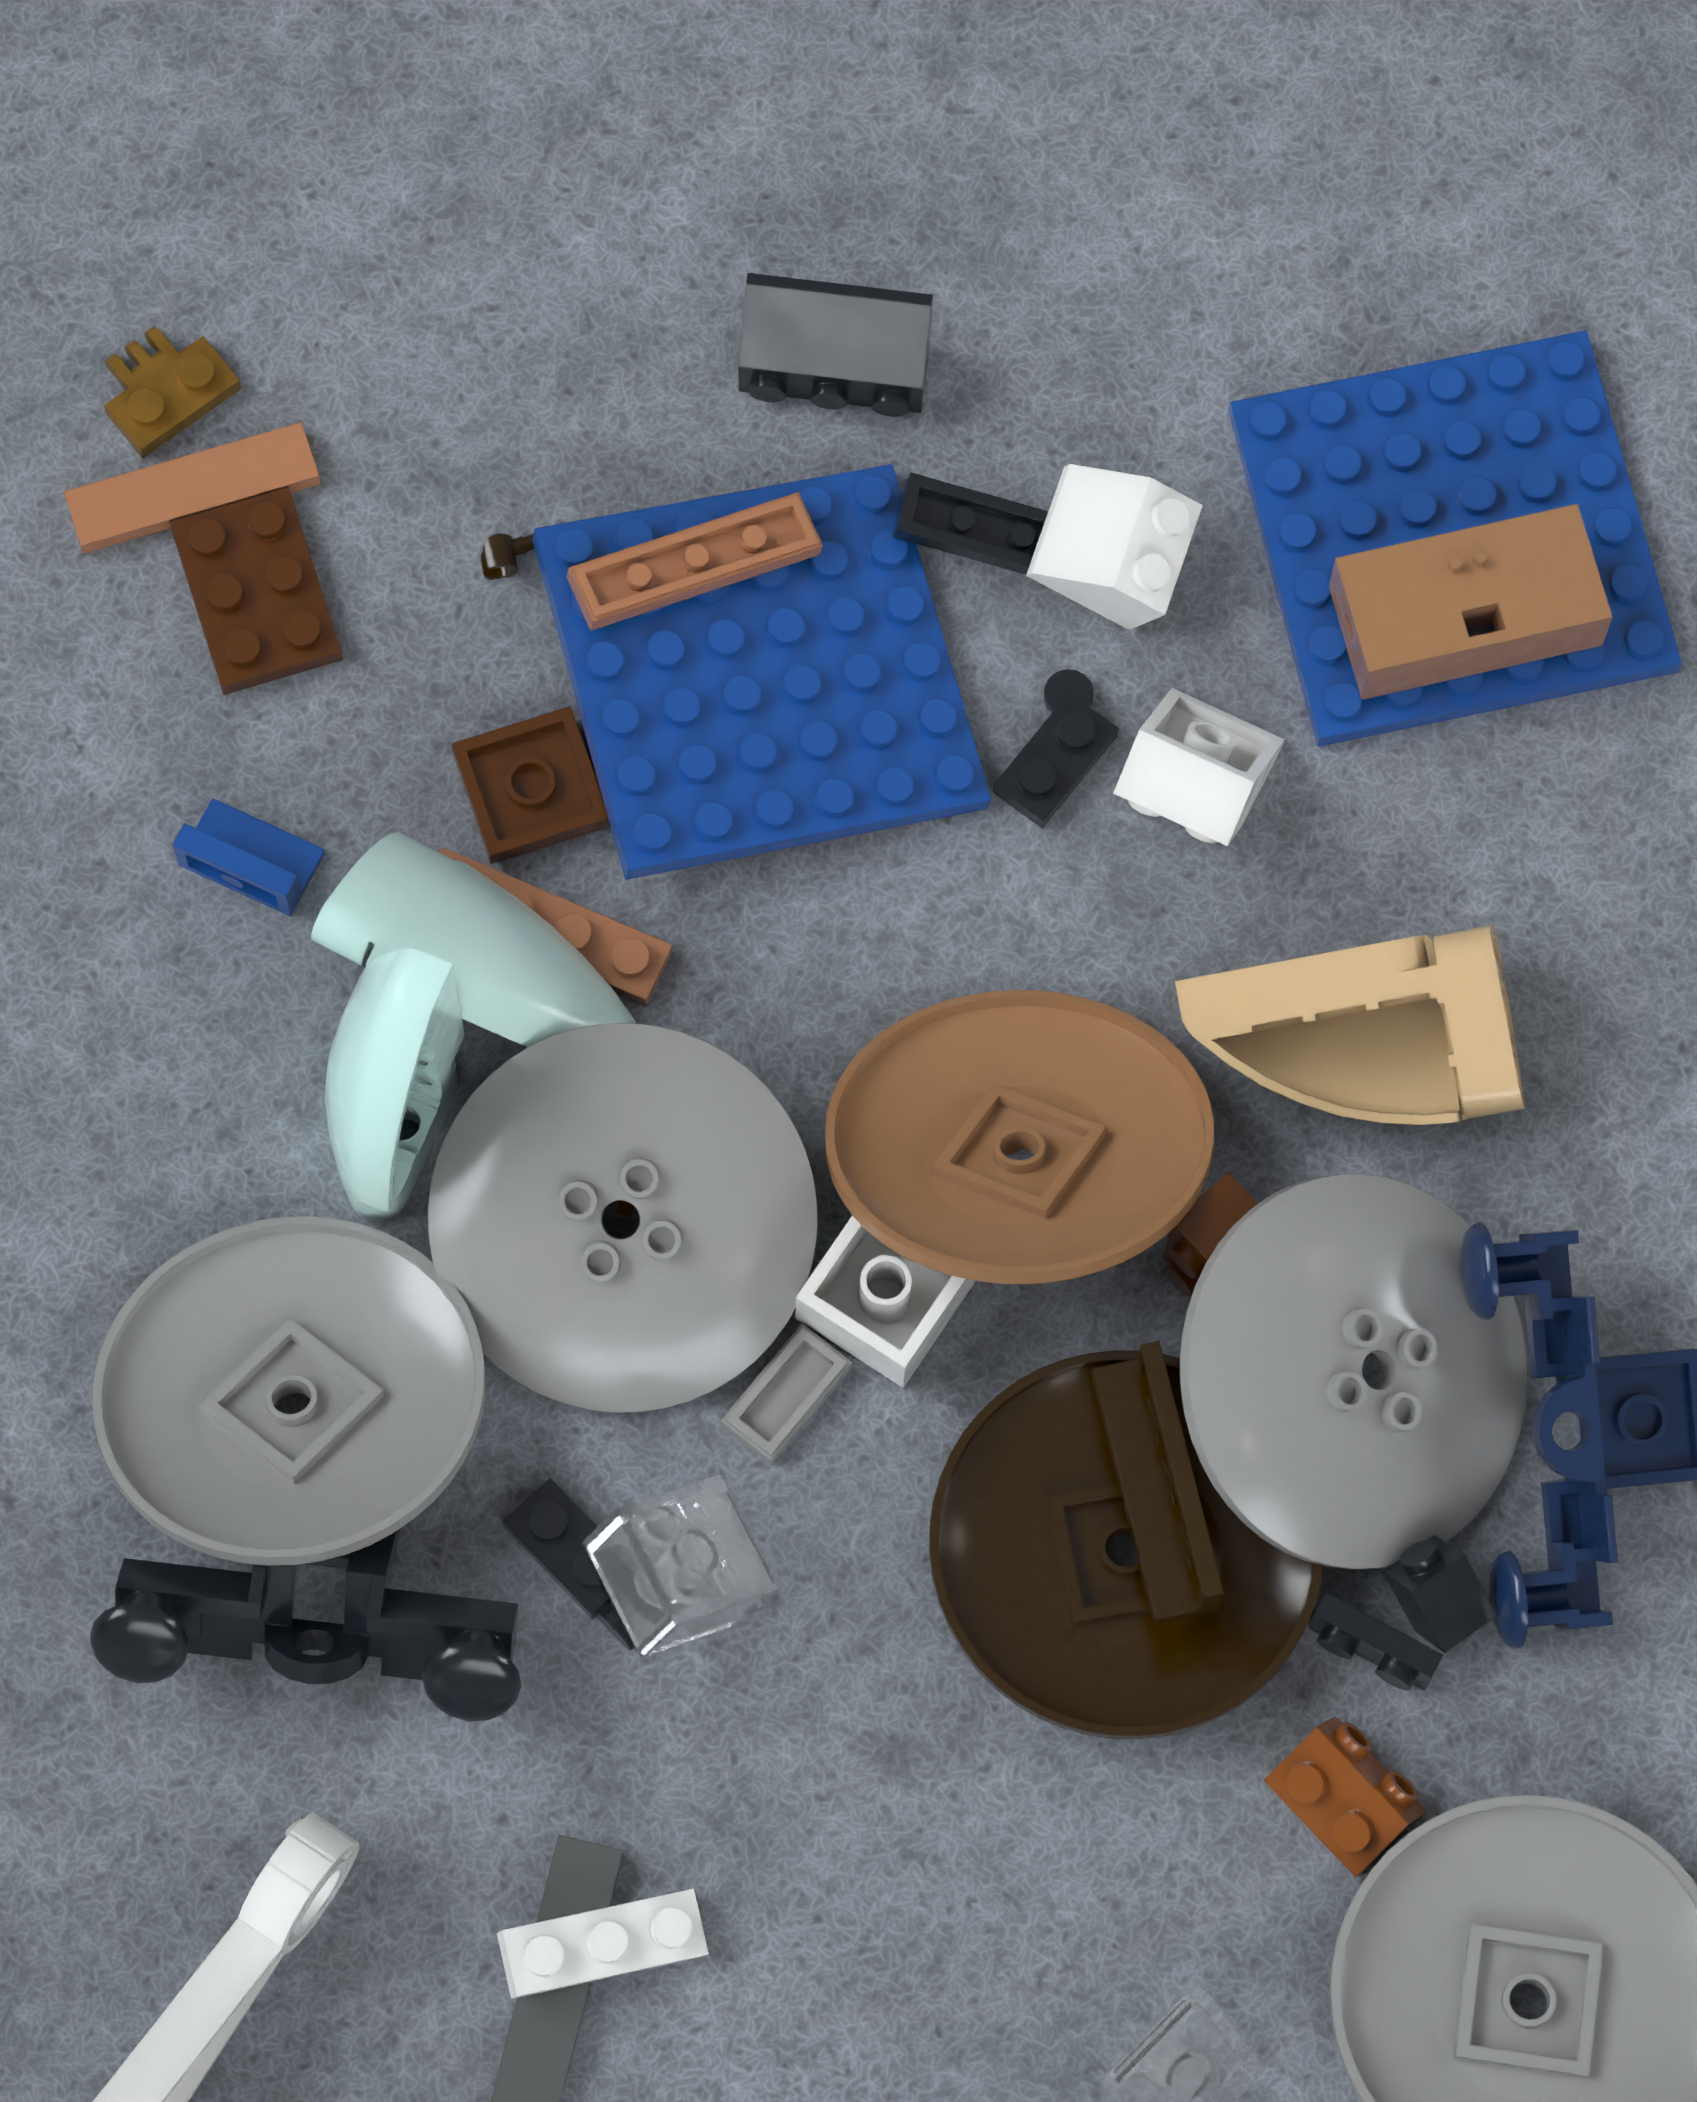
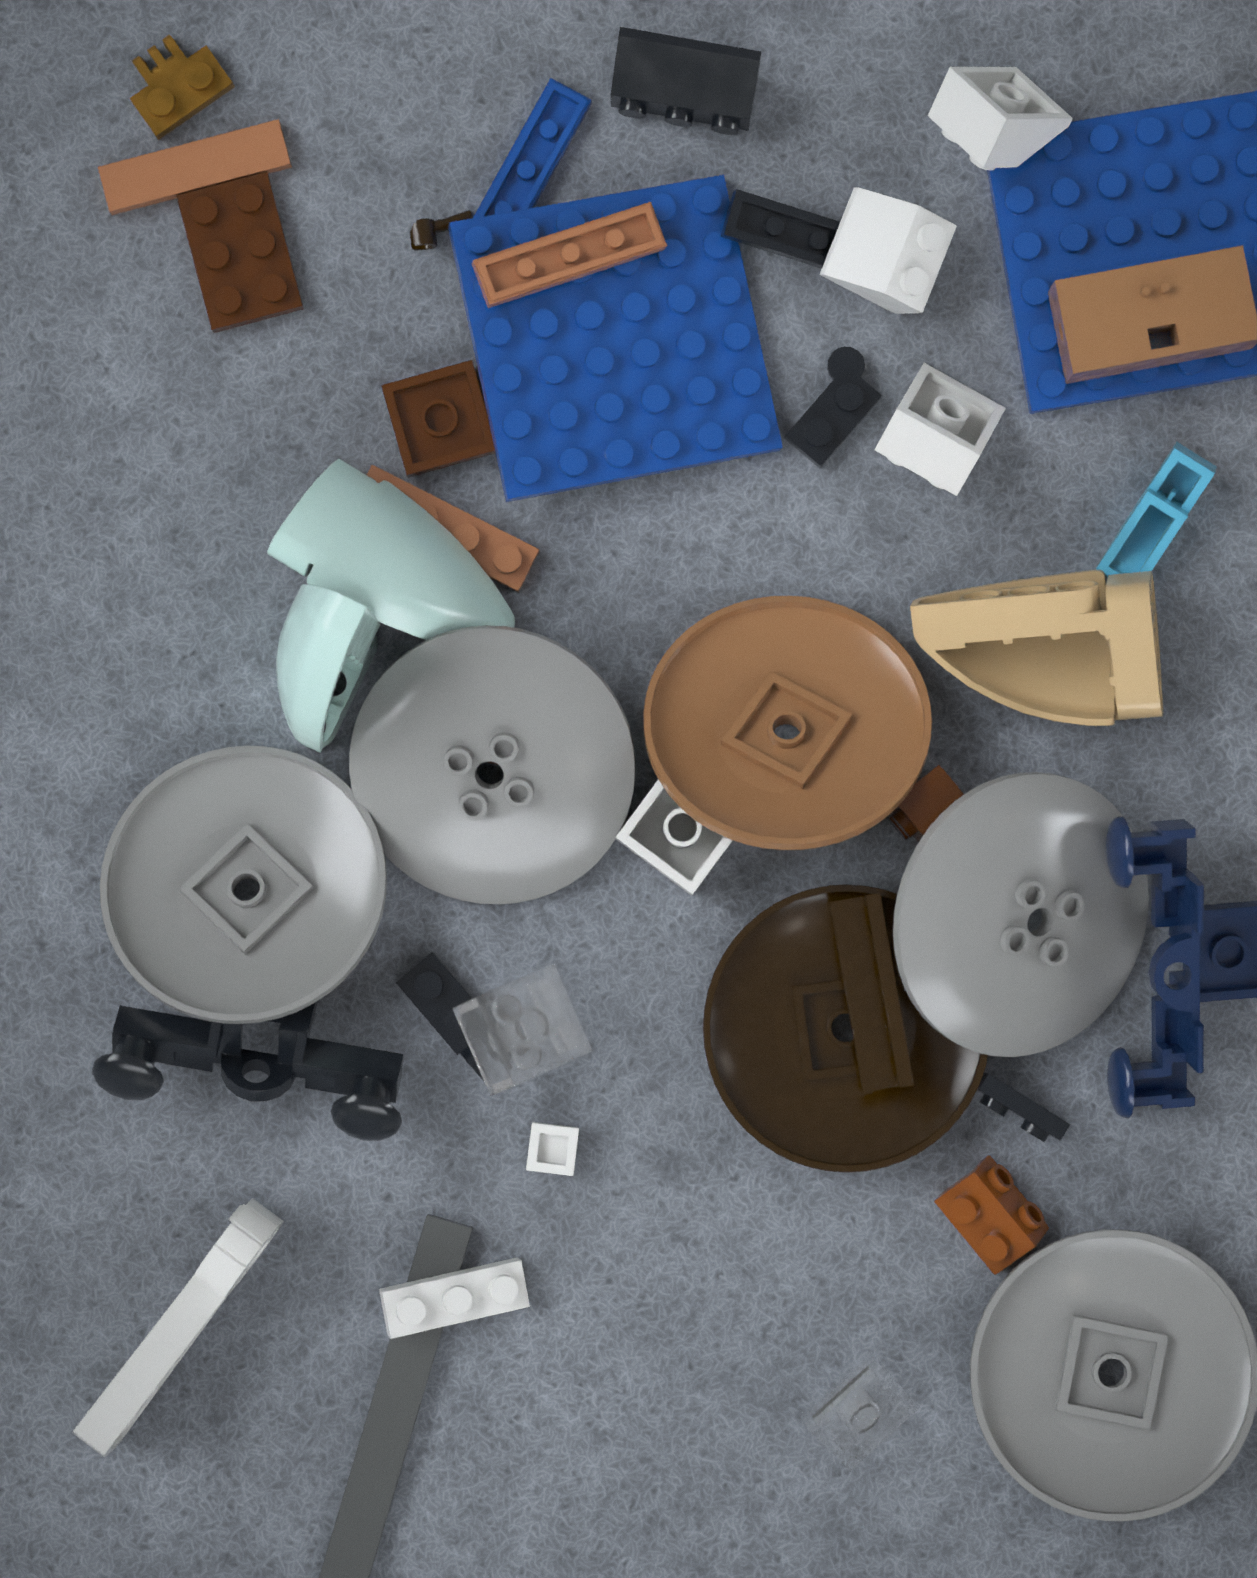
camera: 10 degrees right, 15 degrees up
(248, 856) = (229, 462): blue panel -> none
(646, 442) = (536, 151): none -> blue tile
(729, 1735) = (552, 1148): none -> white plate
(786, 1394) = (606, 896): light grey tile -> none
(1243, 370) = (996, 115): none -> white slope
(1439, 1593) = (1071, 1075): black brick -> none
(1498, 856) = (1158, 513): none -> medium azure slope

